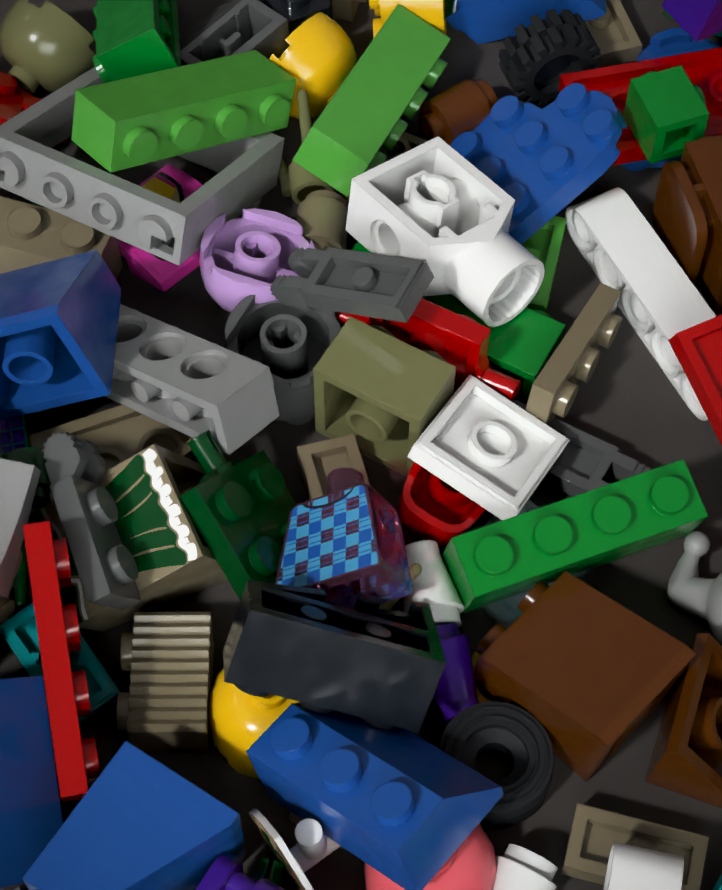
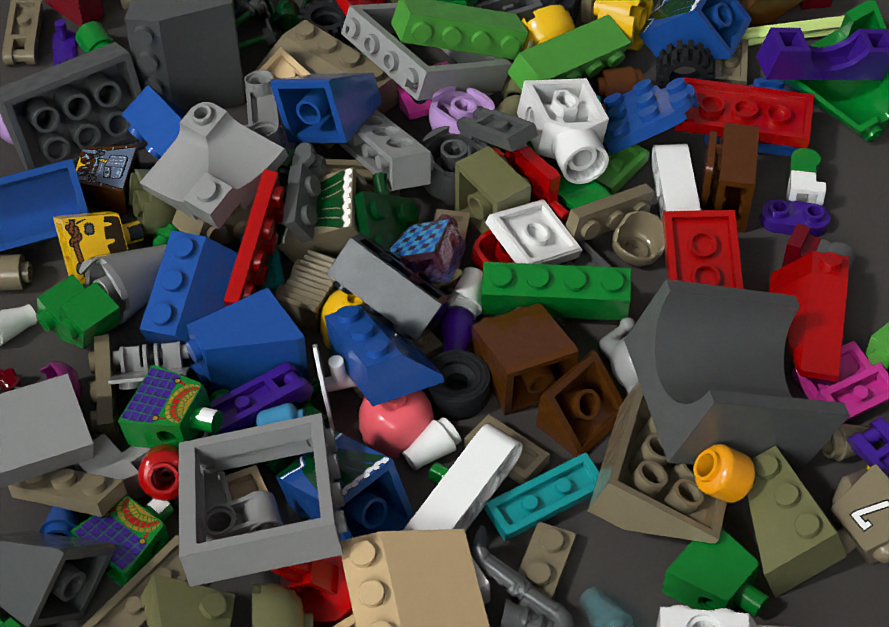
camera: 25 degrees right, 10 degrees down
(637, 381) = (639, 238): none -> dark tan hair
(665, 112) = (726, 105): green brick -> none

